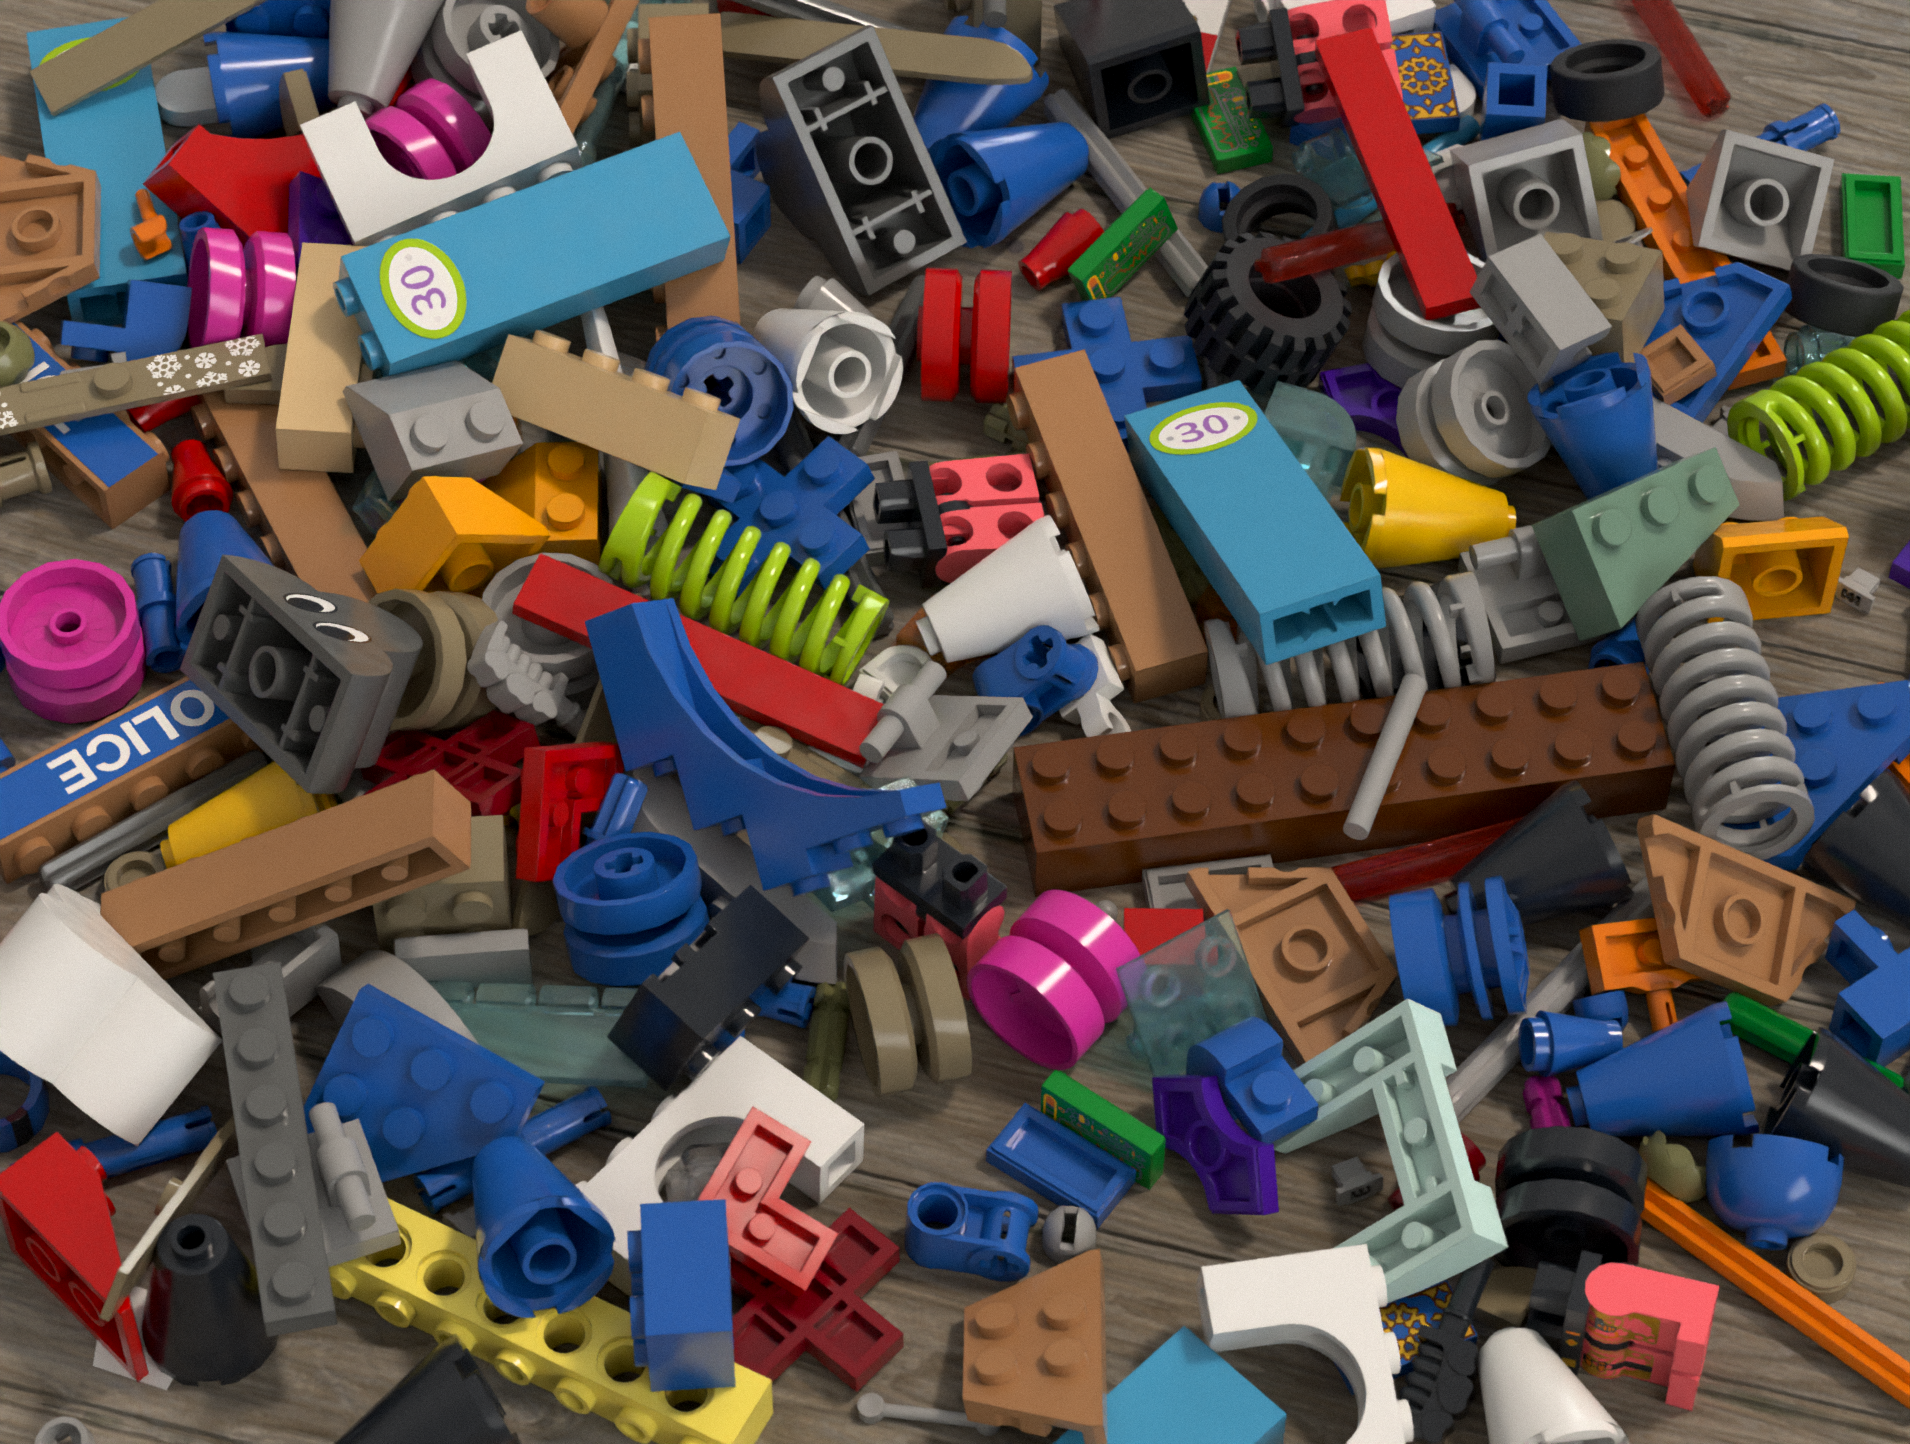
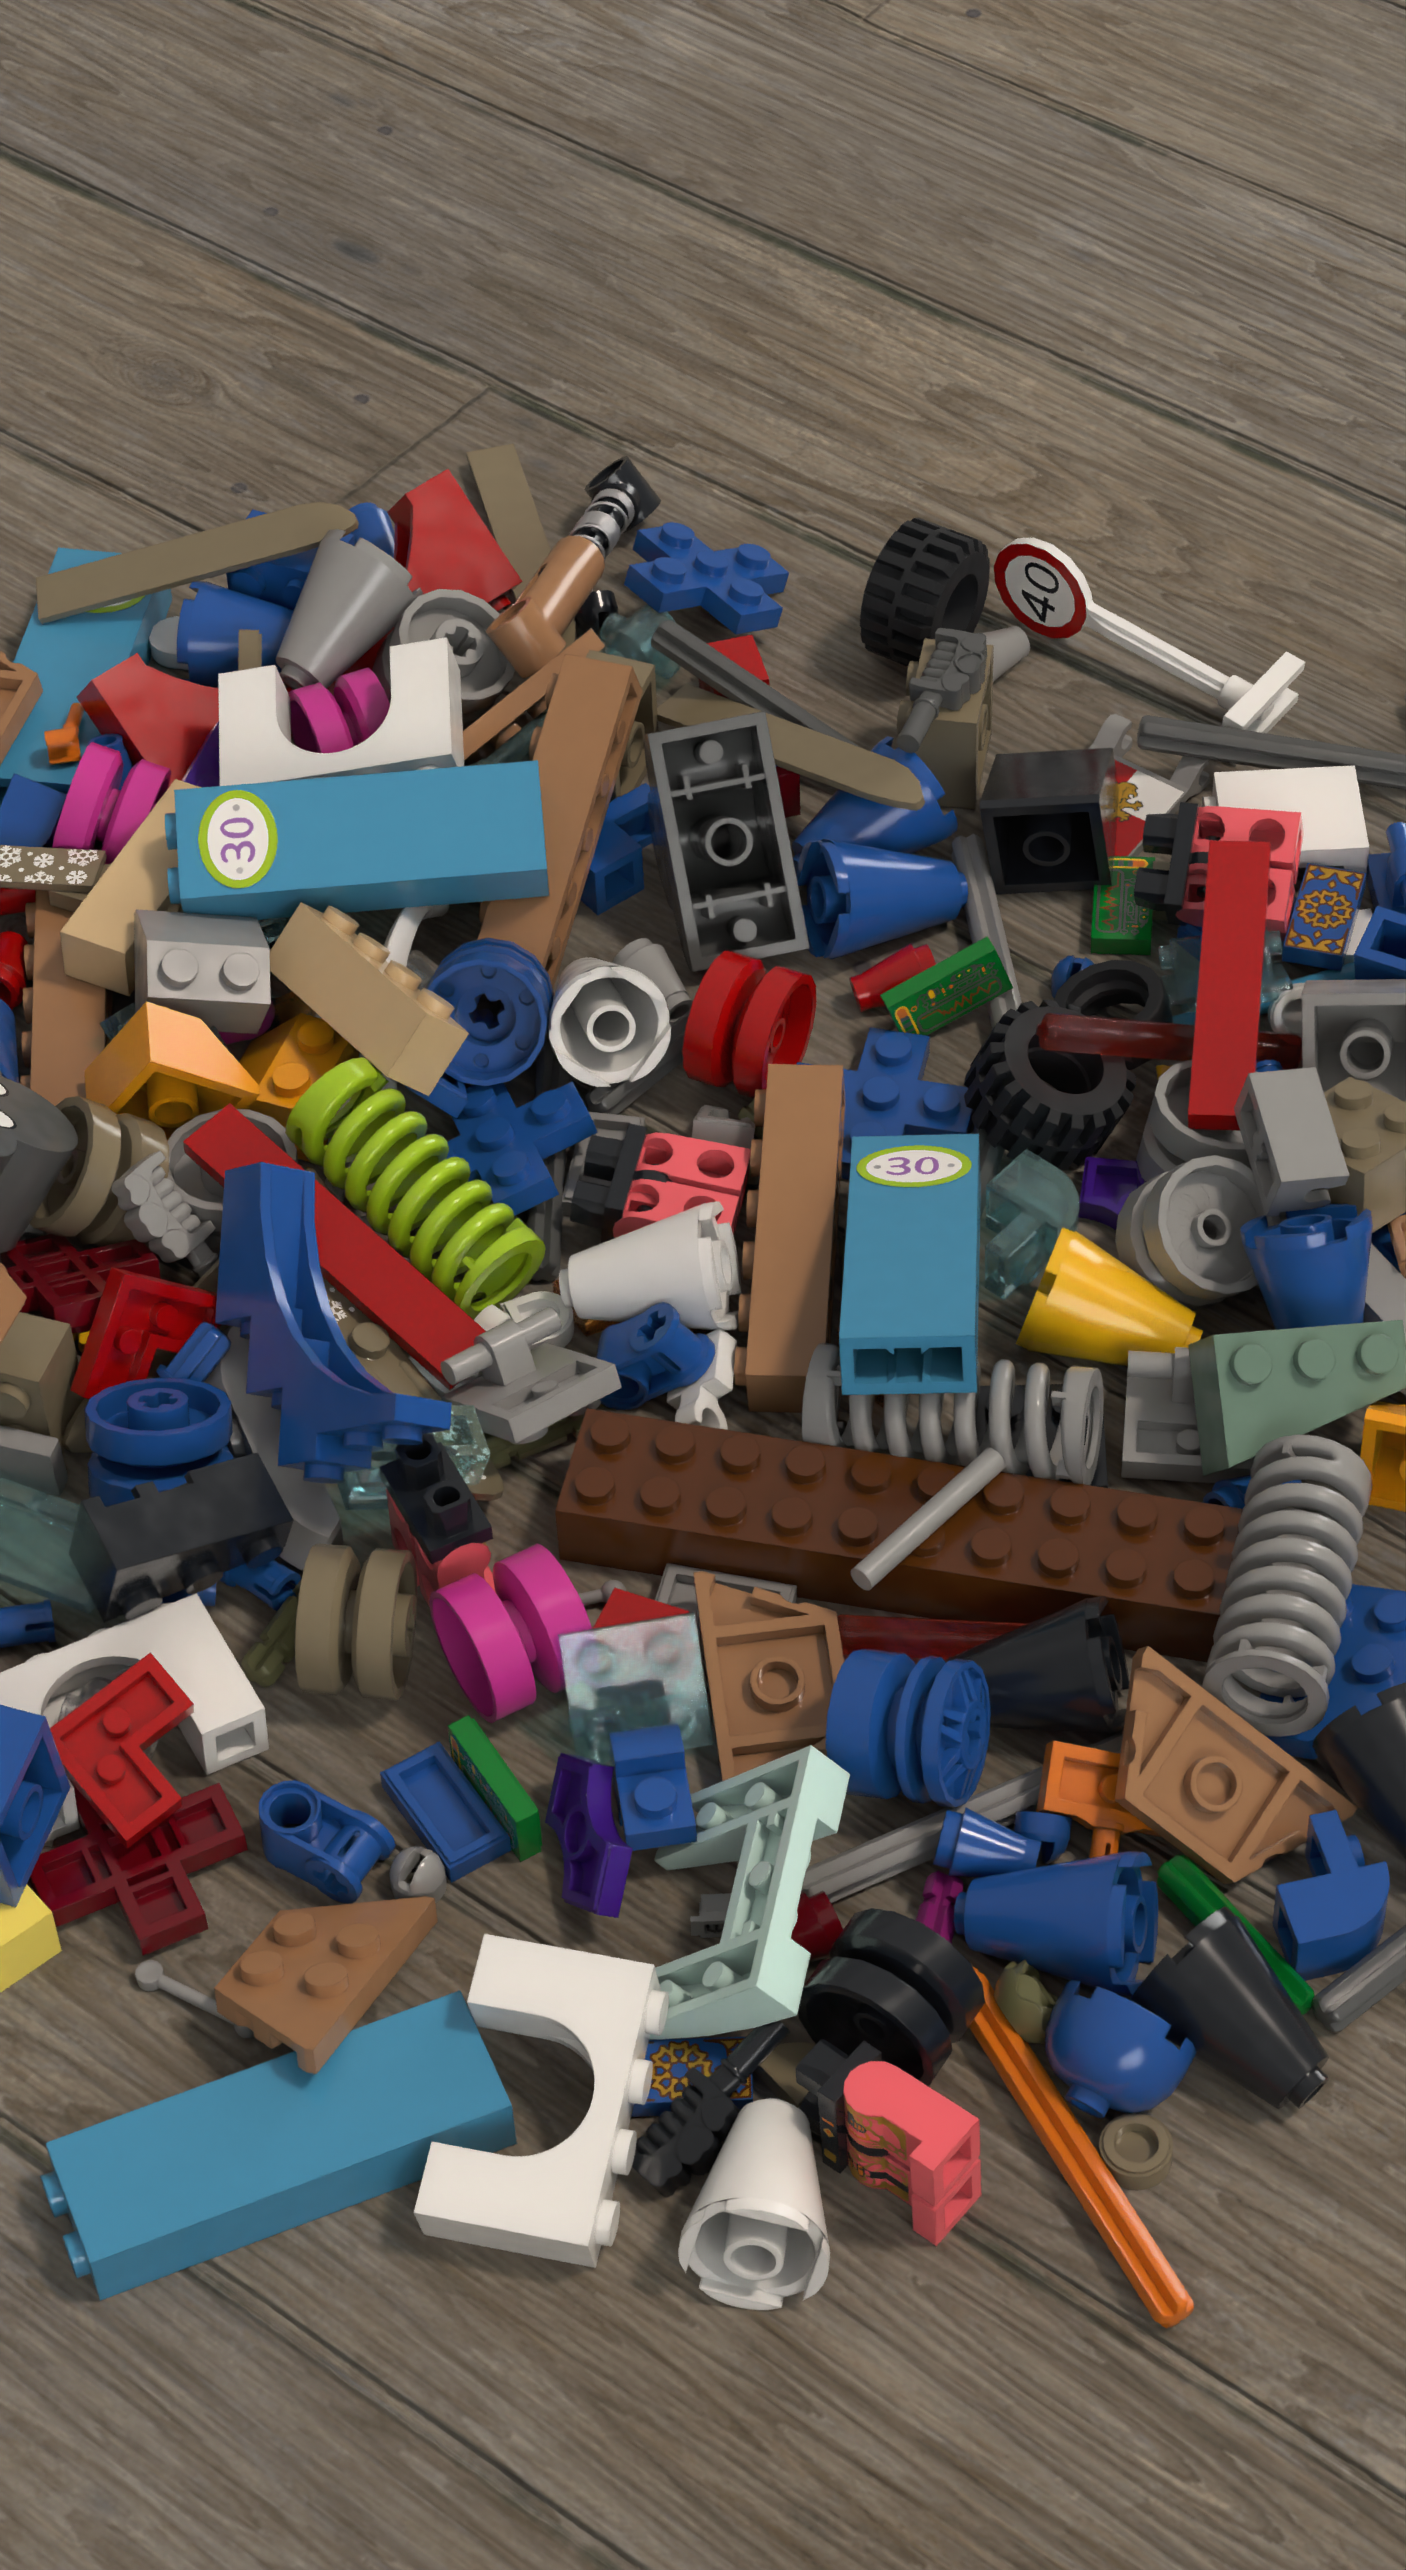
camera: 25 degrees right, 5 degrees down
(969, 444) = (716, 1126): none -> light grey tile

